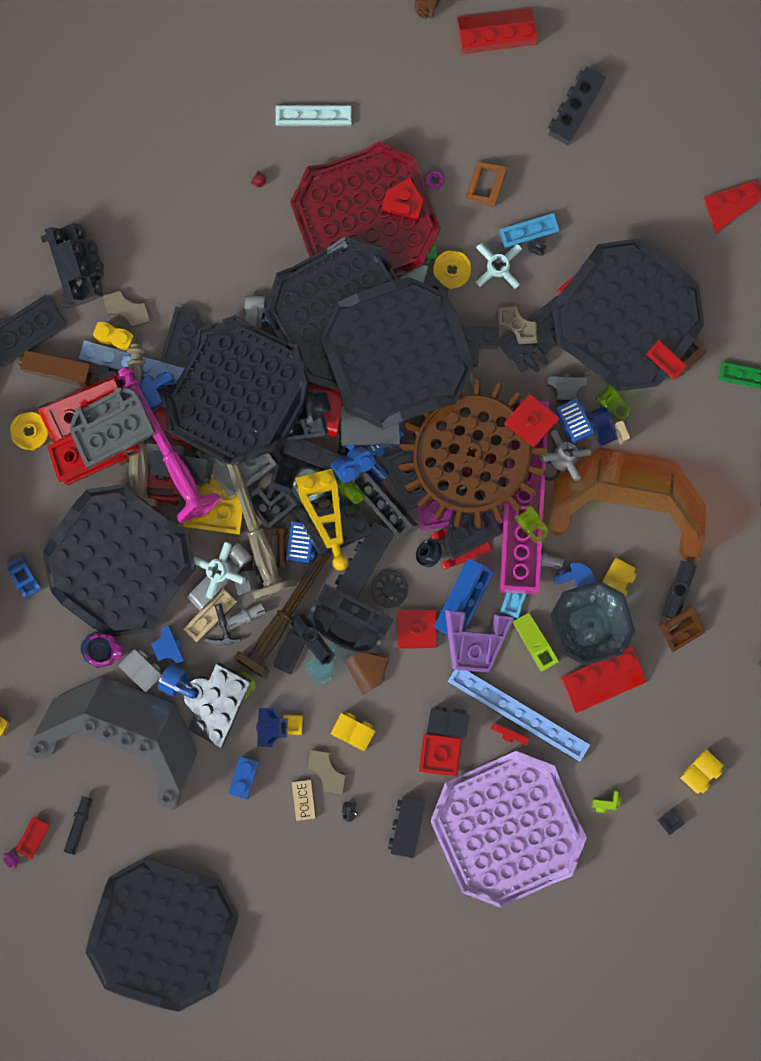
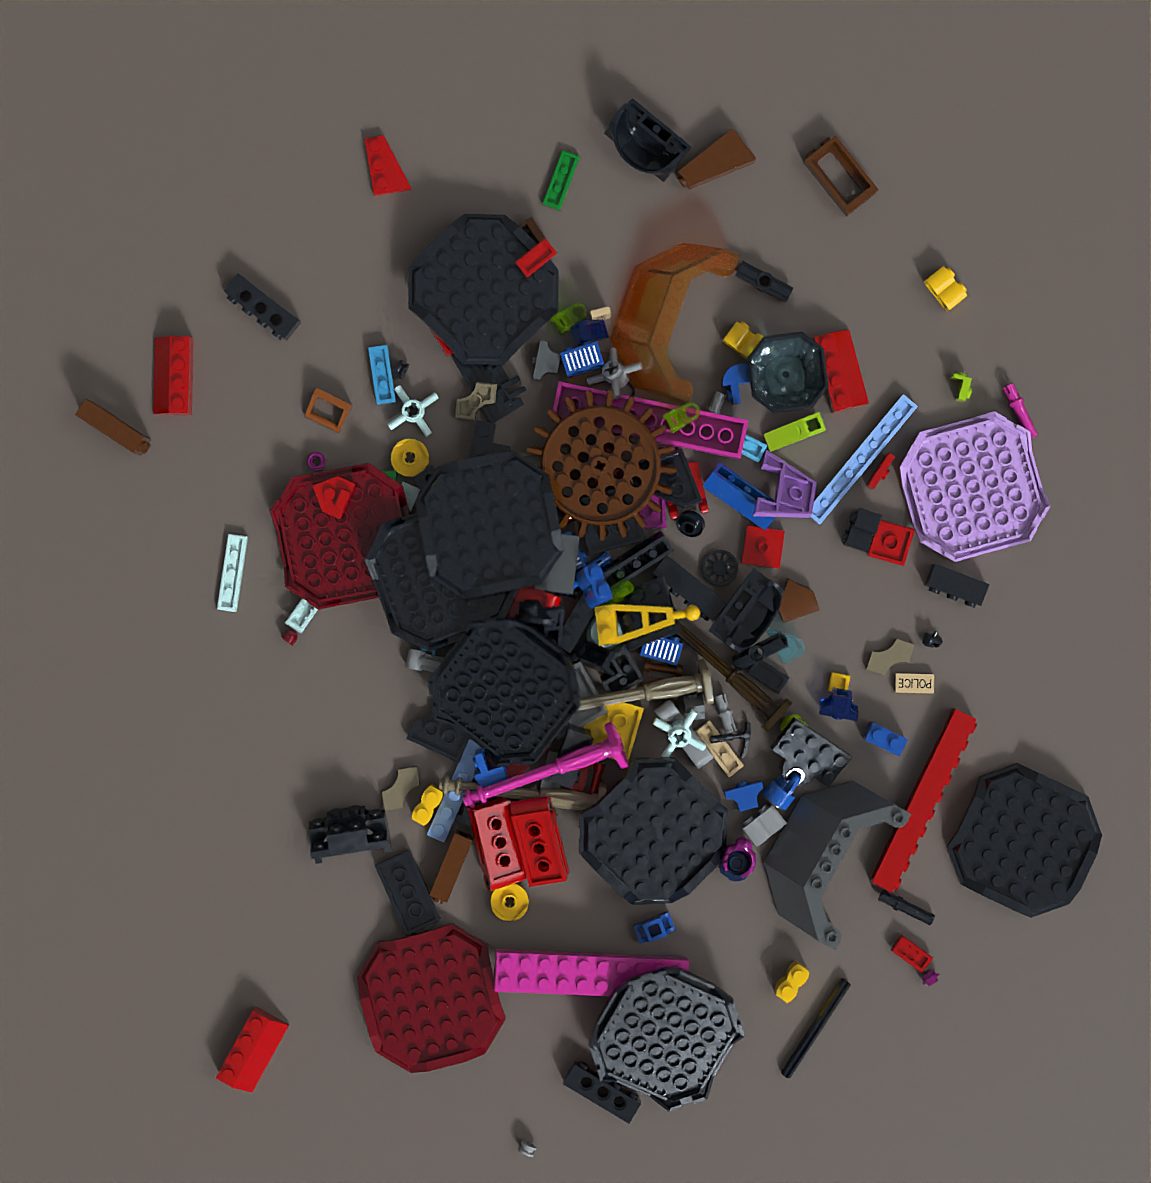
camera: 80 degrees left, 5 degrees up
(110, 426) = (521, 821): dark grey plate -> none
(188, 825) = (923, 799): none -> red brick
(280, 187) = (301, 616): none -> light aqua plate
(353, 731) = (855, 624): yellow brick -> none
(531, 421) = (579, 401): red plate -> none
(594, 863) = (1019, 409): none -> dark pink pin
(670, 821) = (989, 326): black plate -> none
(683, 633) = (807, 285): reddish brown plate -> none

